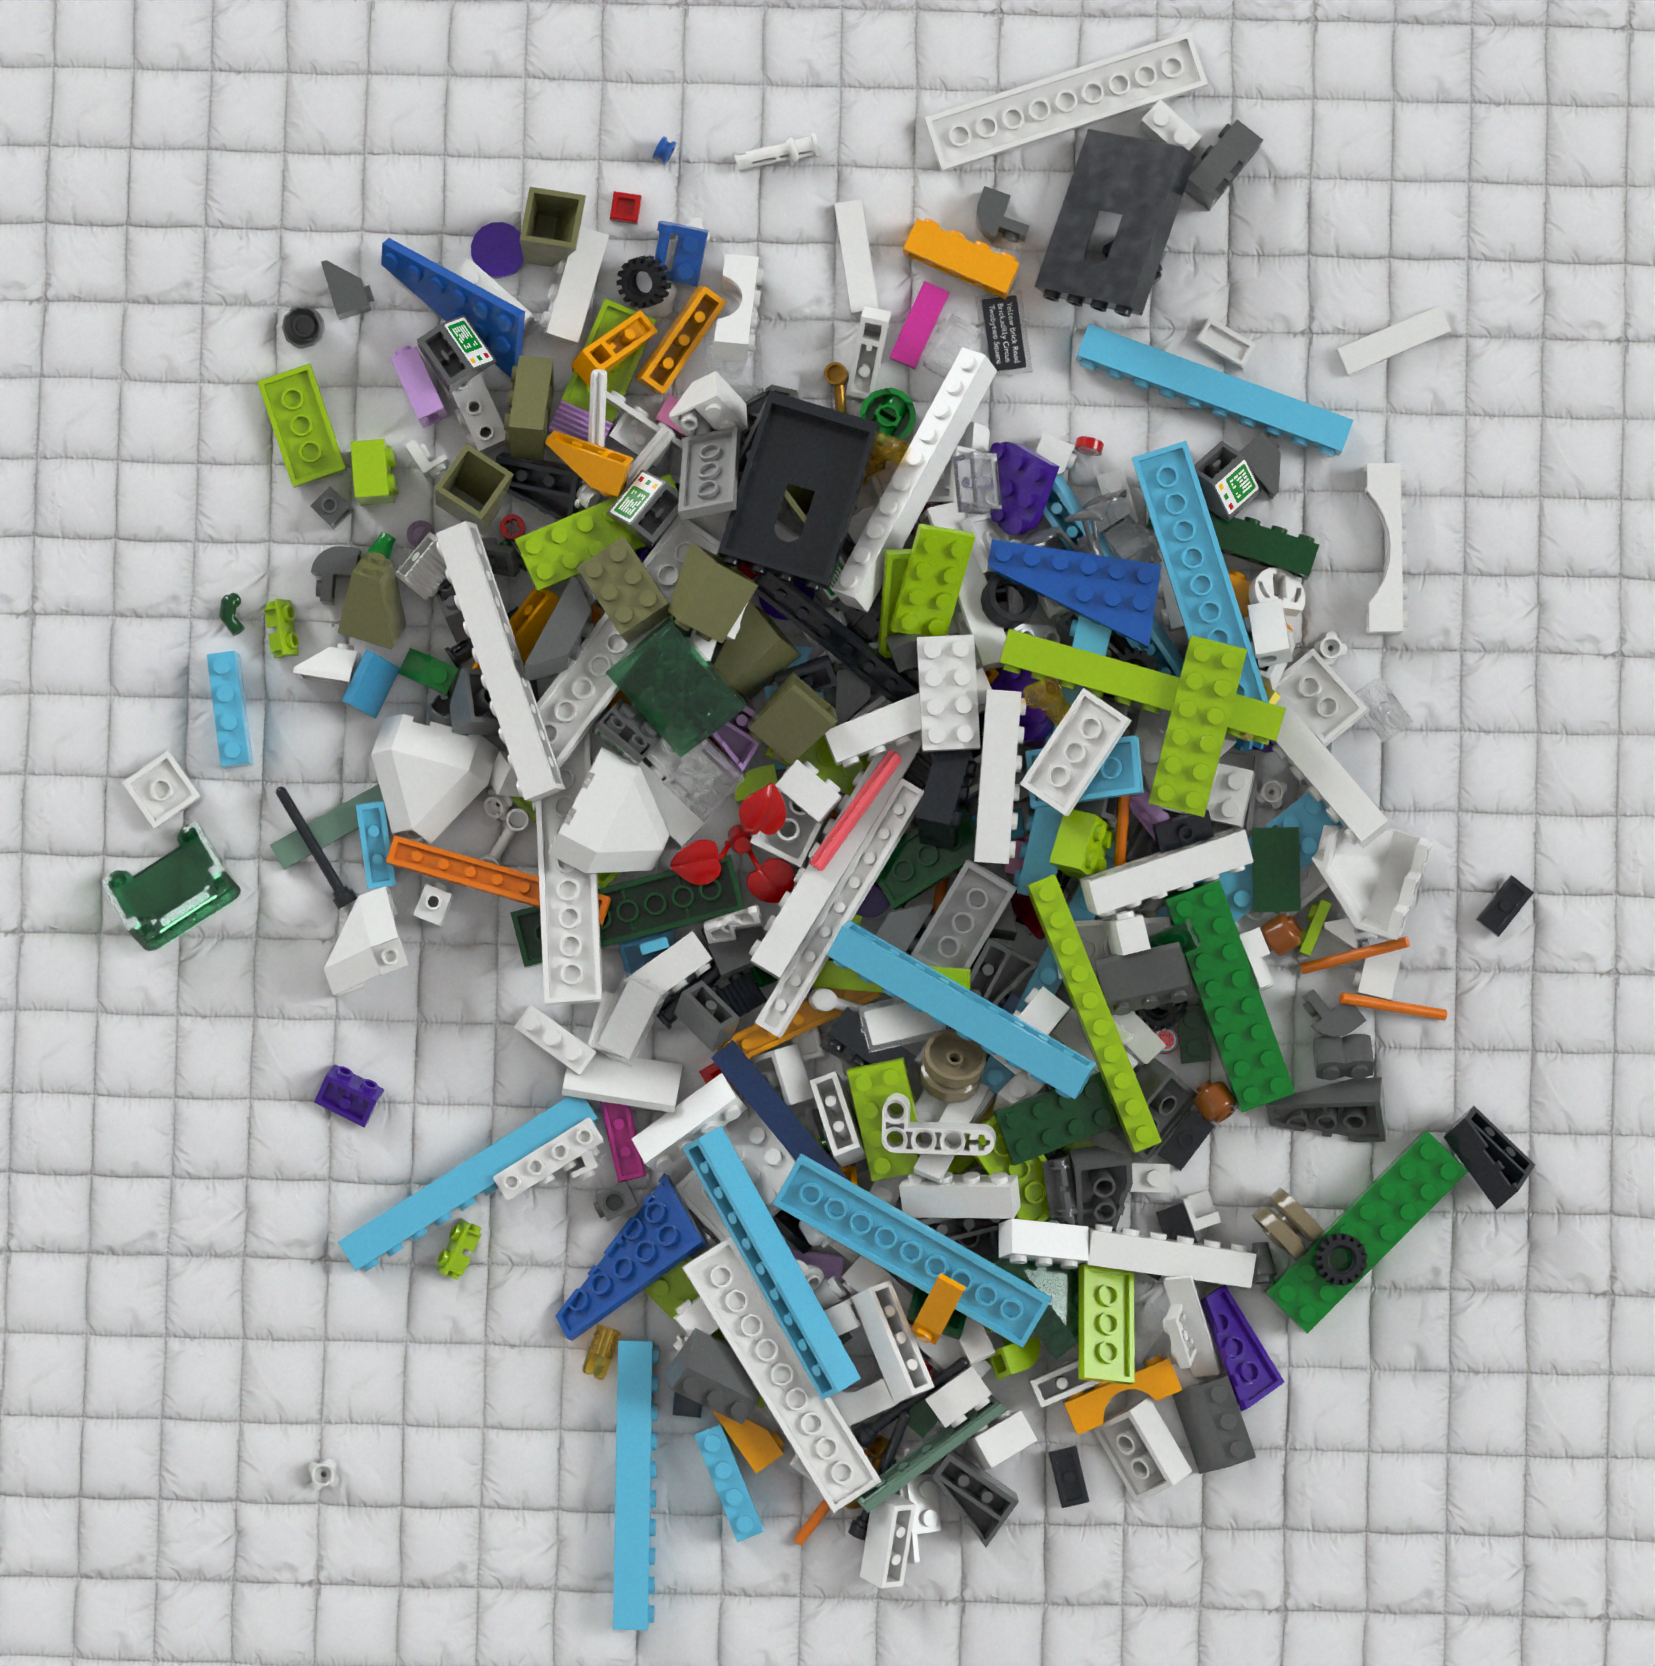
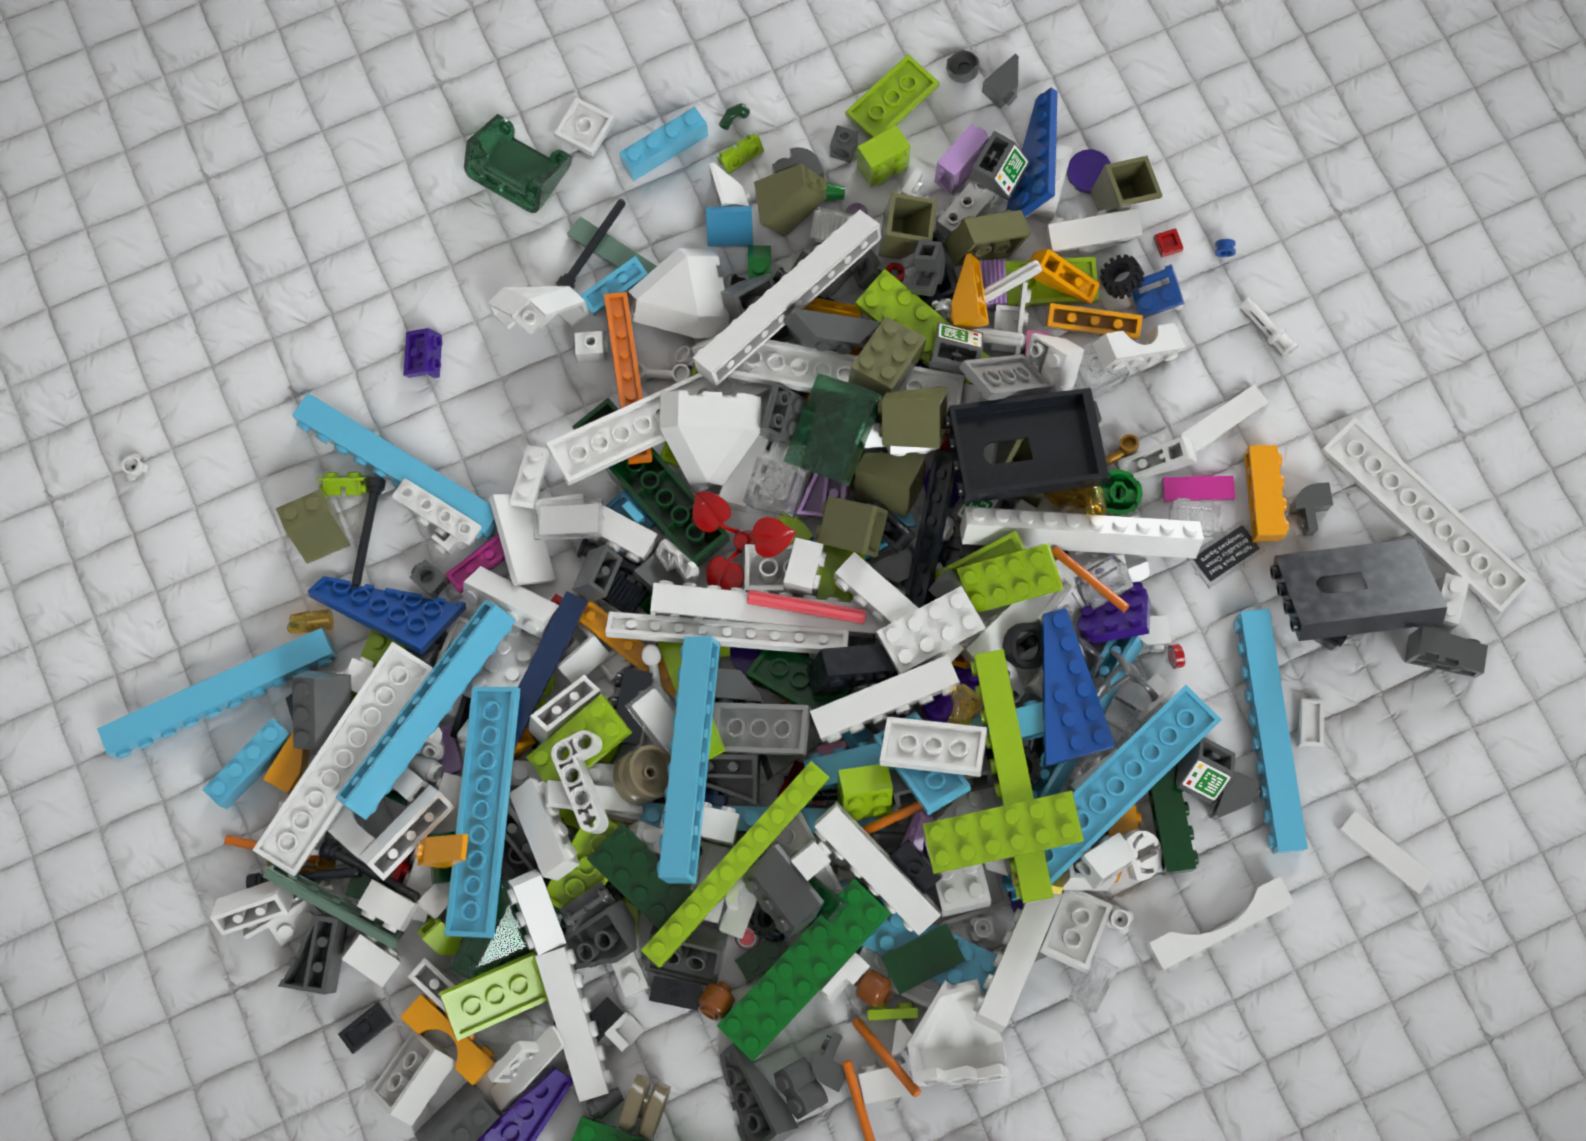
camera: 65 degrees right, 10 degrees down
(482, 1216) = (375, 487): none -> black piece
(499, 1300) = (313, 526): none -> olive slope
(540, 490) = (929, 266): none -> dark grey brick
(971, 498) = (1090, 579): none -> orange bar

